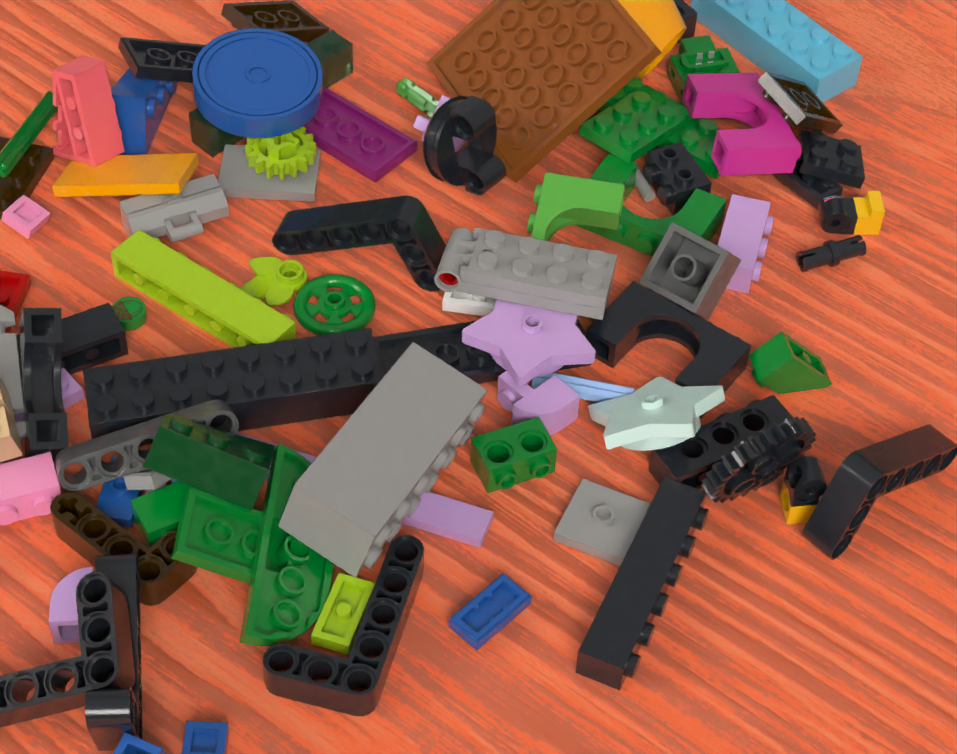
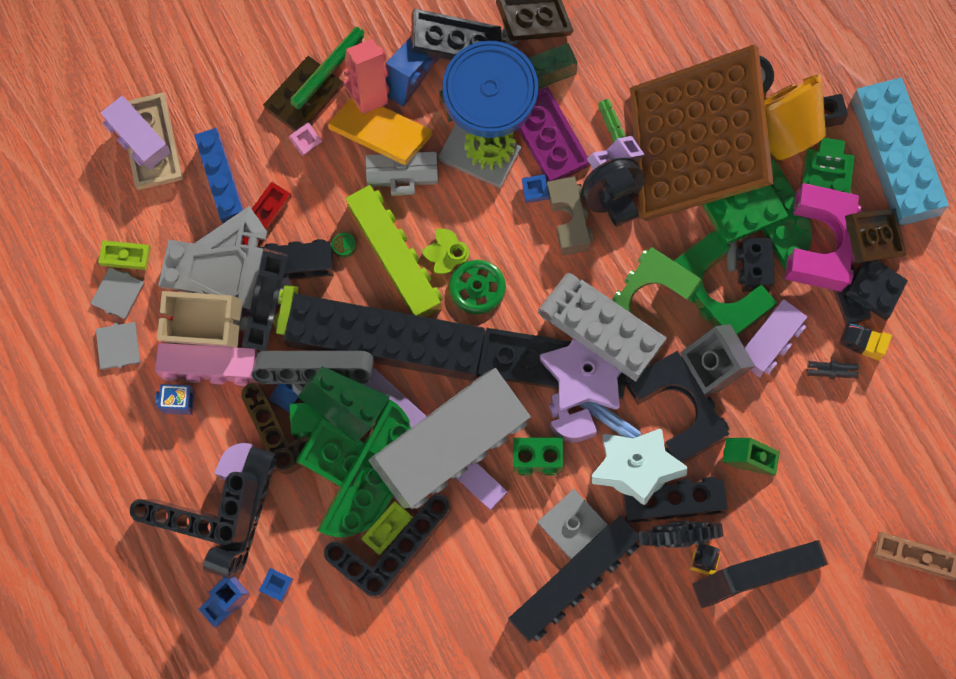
camera: 30 degrees right, 25 degrees up
(74, 384) = (285, 299): none -> lime plate
(360, 184) = (535, 188): none -> blue plate
(367, 223) = (515, 243): black beam -> none
(408, 177) = (565, 196): none -> dark tan arch
(489, 611) = (473, 562): blue plate -> none

